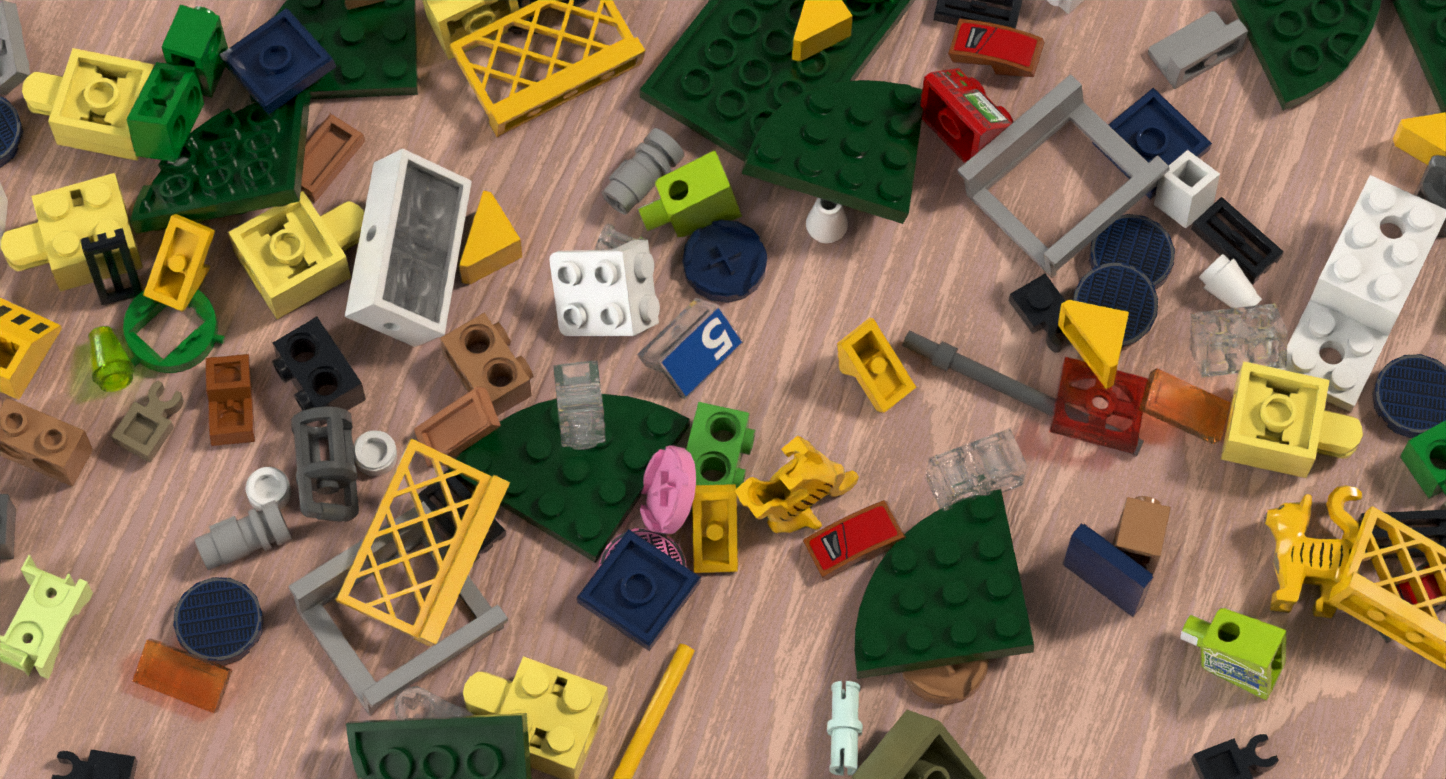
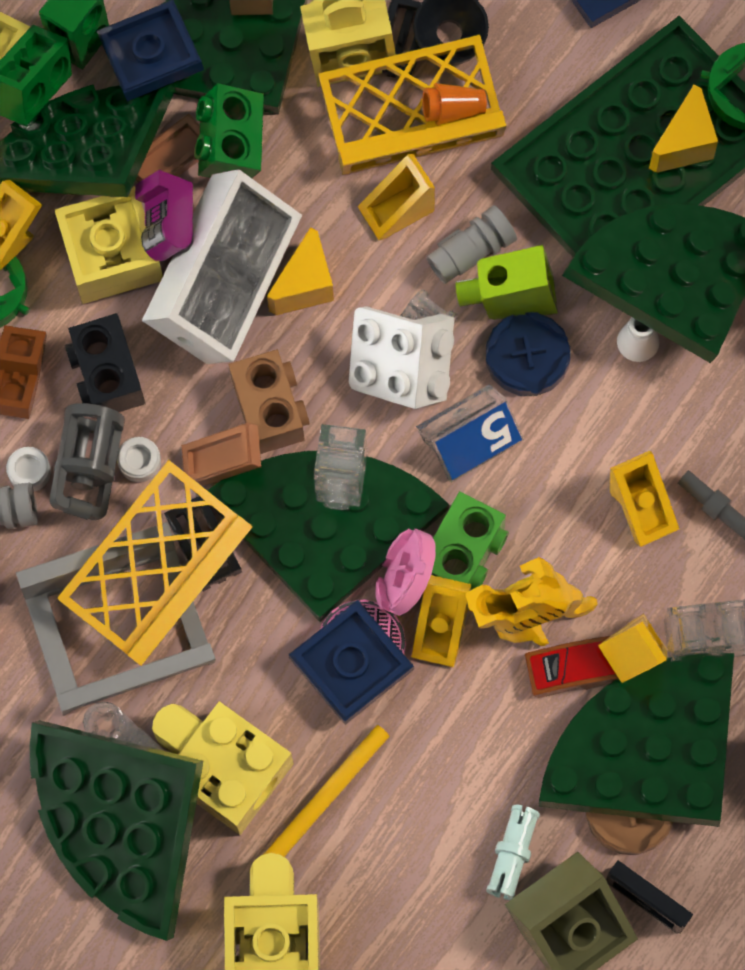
camera: 20 degrees right, 5 degrees up
(341, 209) = (167, 214): none -> magenta leg
(377, 118) = (237, 135): none -> green brick
(560, 144) = (399, 199): none -> yellow slope
(586, 41) = (452, 103): none -> orange cone
(906, 507) = (634, 649): none -> yellow slope
(987, 735) = (648, 897): none -> black tile

